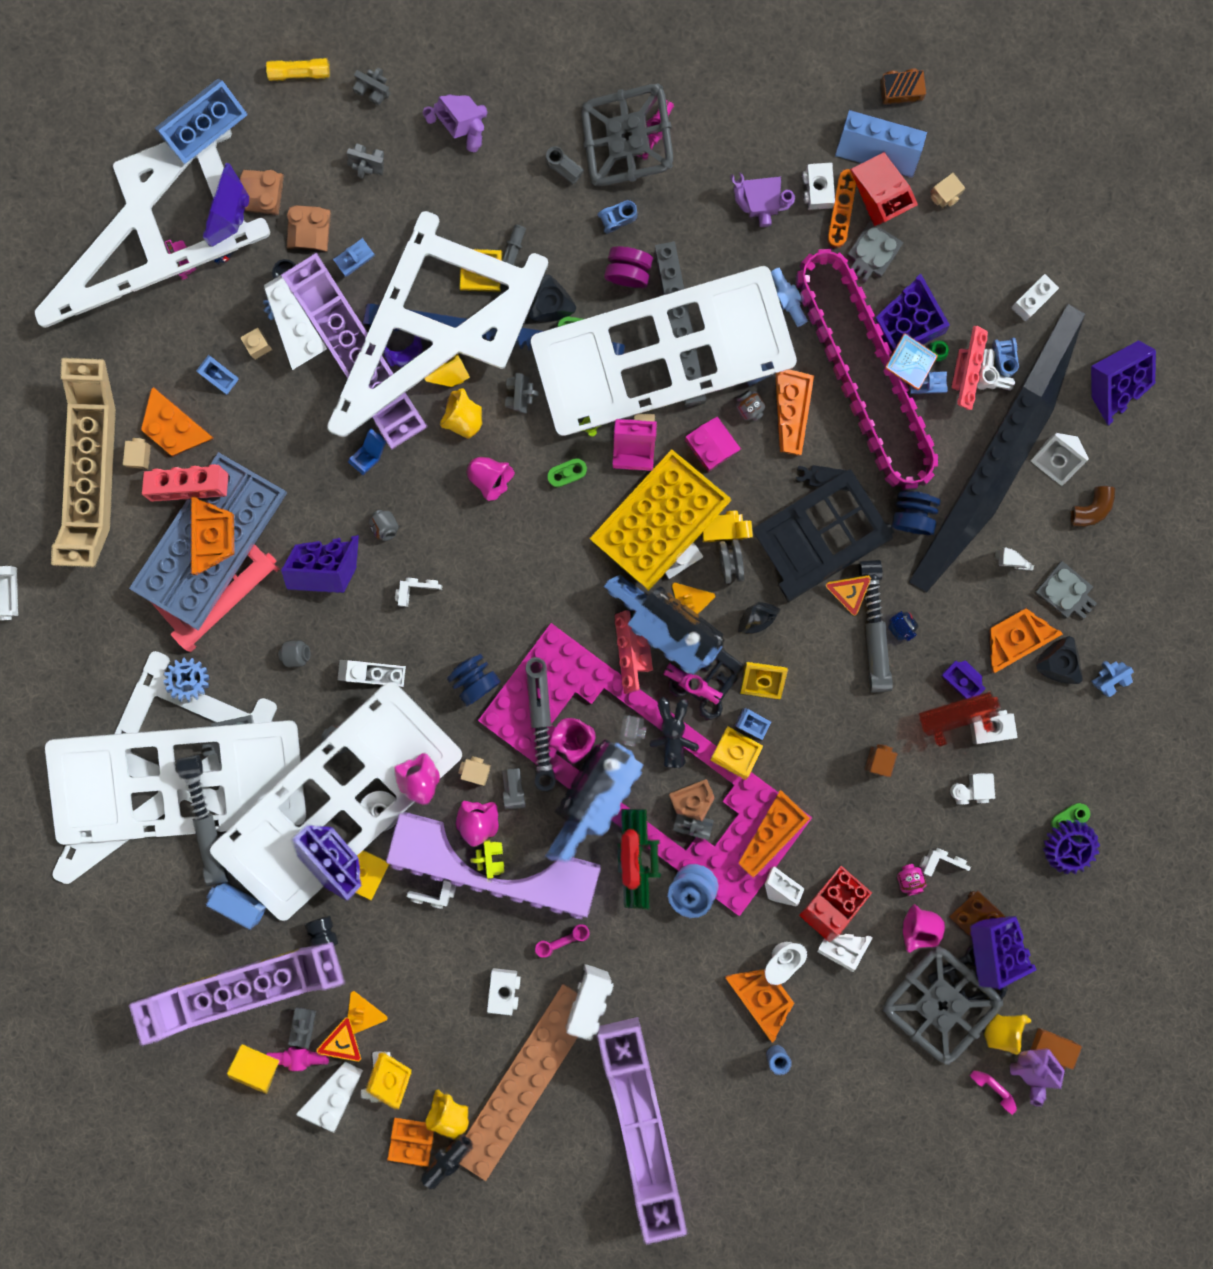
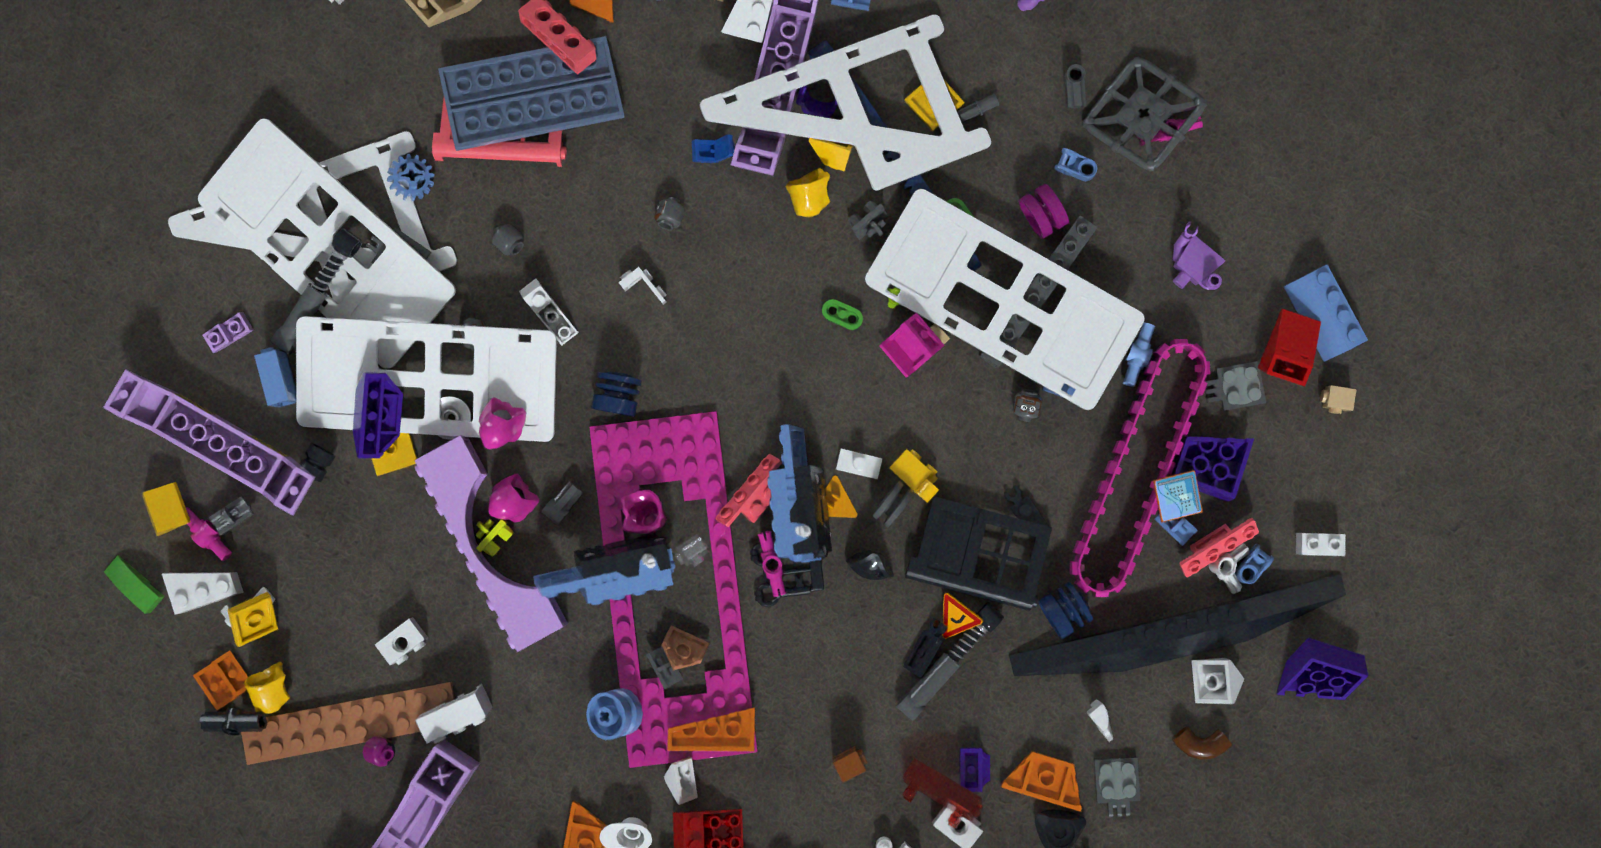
camera: 50 degrees right, 0 degrees up
(172, 909) = (227, 332): none -> lavender slope
(210, 535) = (536, 91): orange wing -> none
(285, 1142) = (133, 585): none -> bright green slope
(321, 566) = (593, 197): dark purple wedge -> none
(341, 1043) = (247, 556): piece -> none
(363, 1014) = (284, 551): light orange piece -> none
(448, 891) = (437, 527): white bracket -> none
(474, 770) = (548, 460): tan brick -> none
(484, 473) = (782, 252): dark pink piece -> none
(540, 720) = (633, 475): piece -> none
(545, 949) = (465, 644): dark pink bar -> none
(551, 302) = (961, 177): black hat -> none
(563, 1079) = (379, 751): none -> magenta head
(634, 874) = (584, 656): dark green piece -> none
(660, 519) = (874, 419): yellow plate -> none
(673, 730) = (721, 583): black animal -> none
(712, 444) = (970, 404): dark pink slope -> none
(736, 753) = (751, 647): yellow plate -> none
(752, 723) = (785, 638): medium blue slope -> none
(763, 680) = (826, 615): yellow slope -> none
(793, 404) = (1060, 436): orange wing -> none
(821, 174) = (1258, 290): white brick -> none
(840, 208) = (1247, 331): orange beam -> none
(851, 634) = (925, 648): none -> black plate
(903, 86) = (1386, 287): brick -> none
(903, 626) = (970, 683): clear blue head -> none
(943, 346) = (1215, 509): green plate -> none

